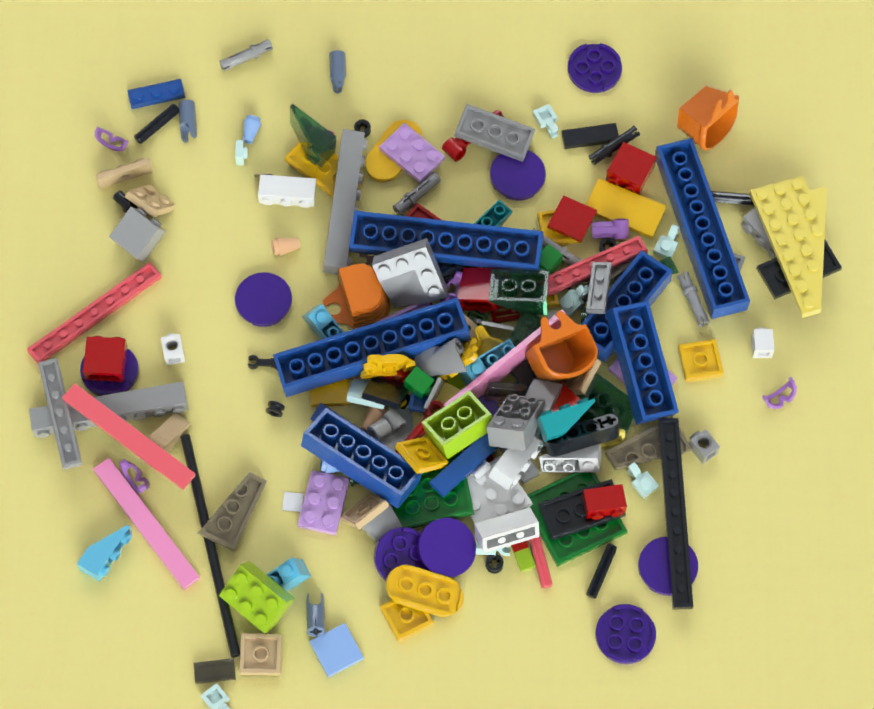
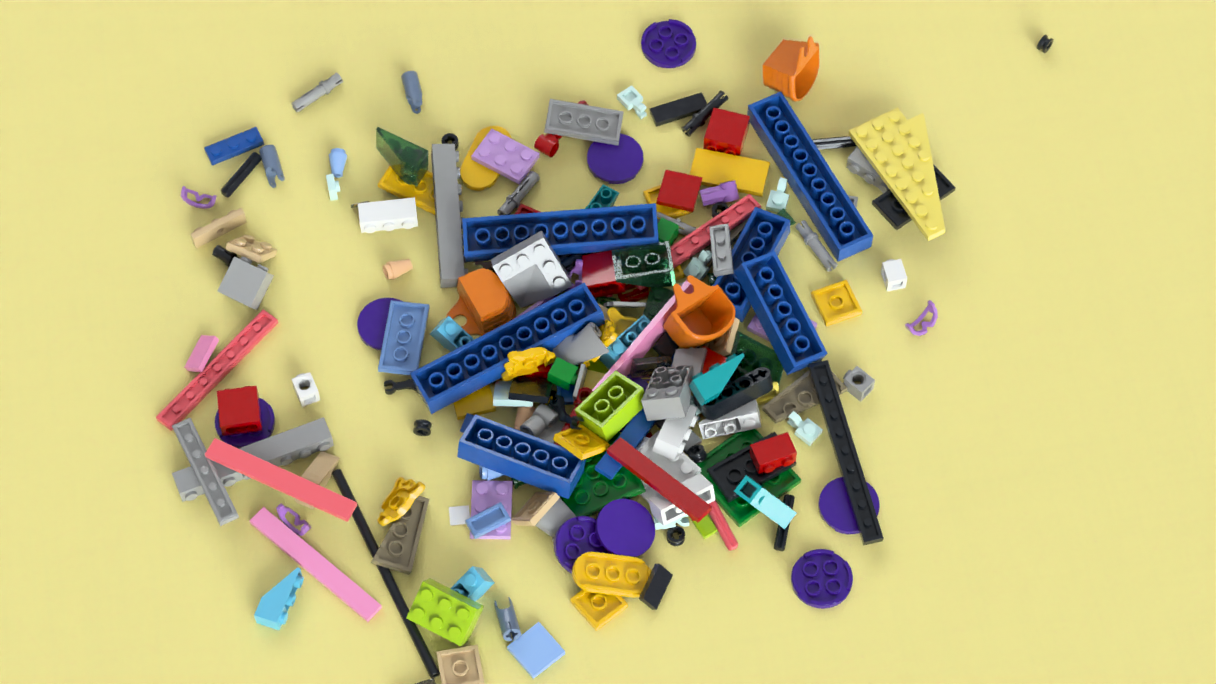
camera: 10 degrees left, 5 degrees down
(82, 294) = (201, 353): none -> bright pink tile
(237, 477) = (399, 500): none -> yellow tile
(276, 316) = (403, 337): none -> medium blue tile
(317, 513) = (487, 520): none -> medium blue tile
(409, 413) = (559, 406): none -> black piece
(463, 610) = (655, 586): none -> black tile
(487, 508) = (659, 480): none -> red tile
(532, 486) = (697, 453): none -> black bush
(586, 548) = (765, 501): none -> slope

